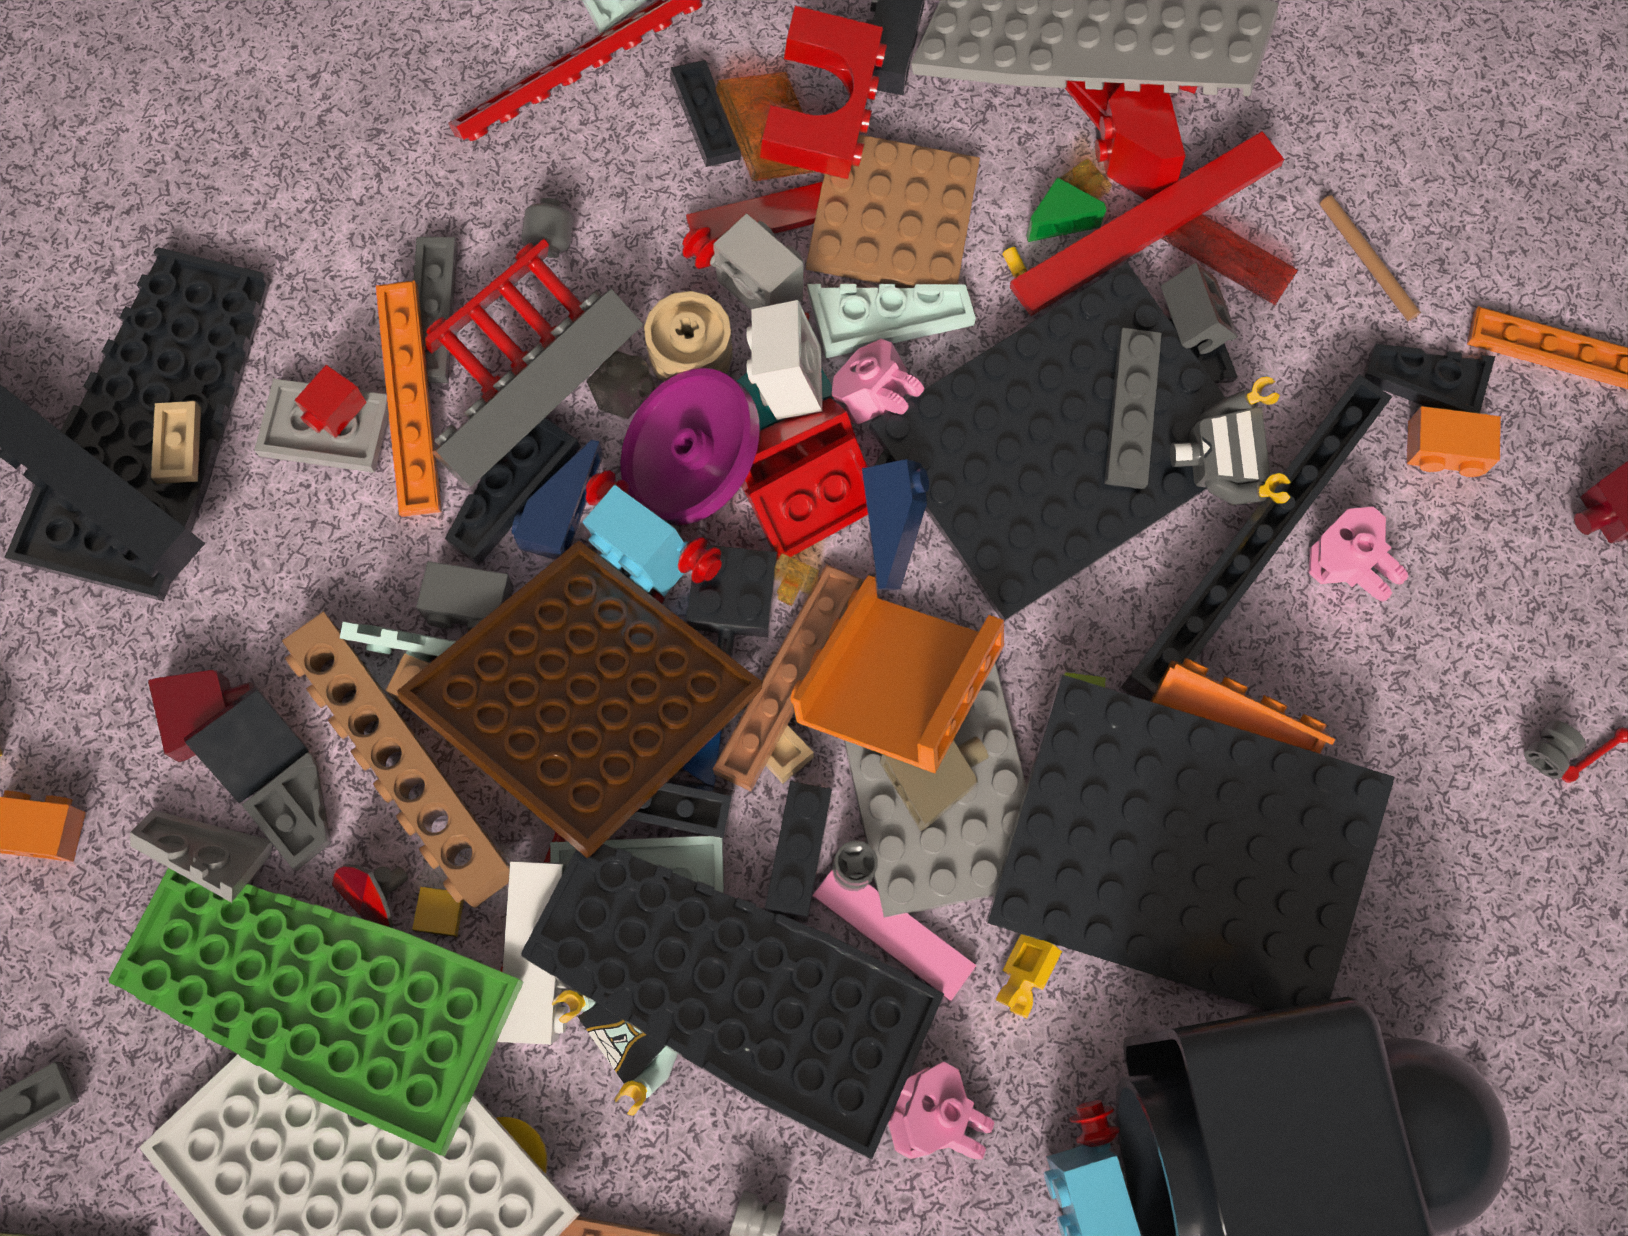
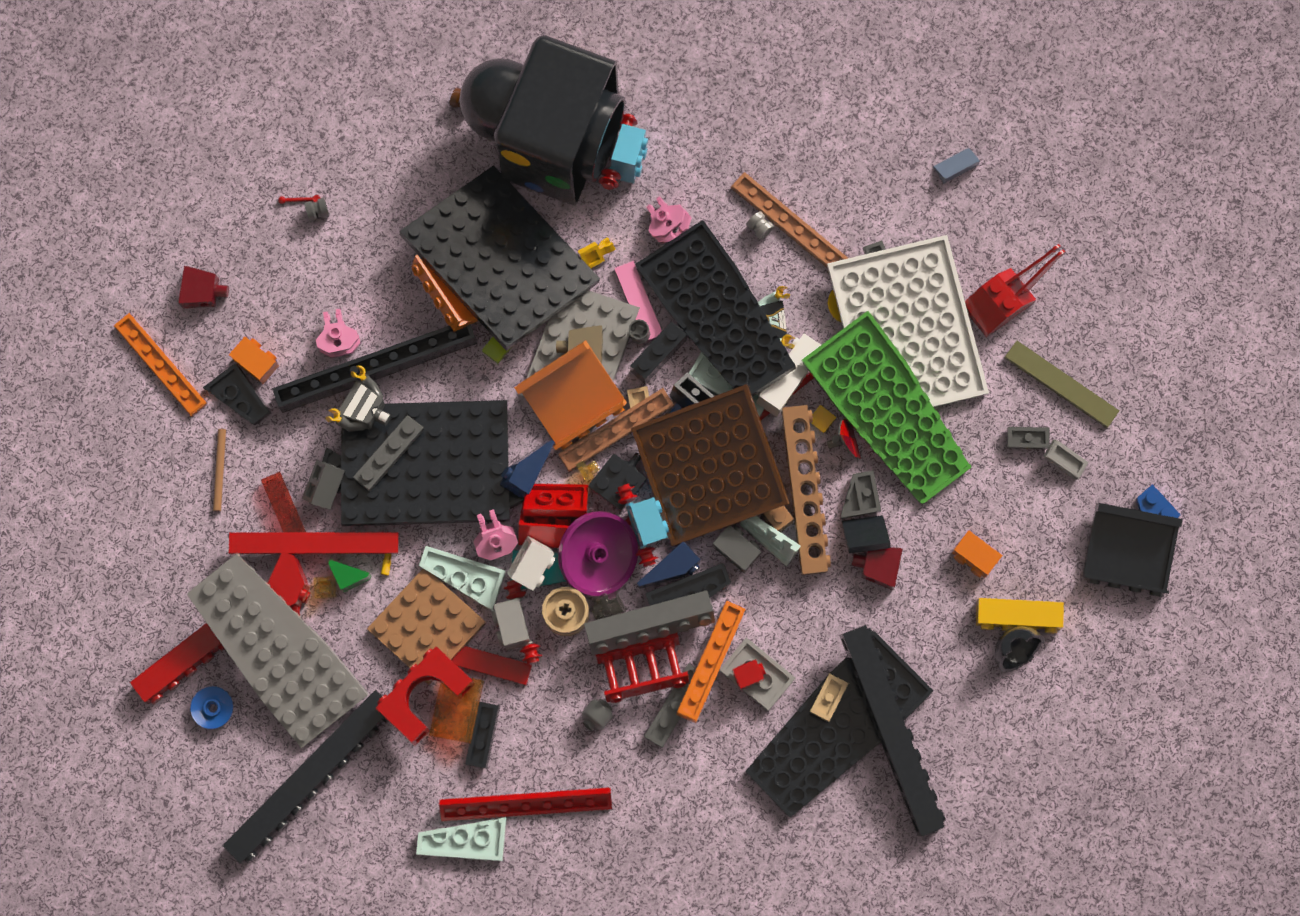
camera: 145 degrees left, 5 degrees up
(202, 852) = (907, 499): light grey wing -> none

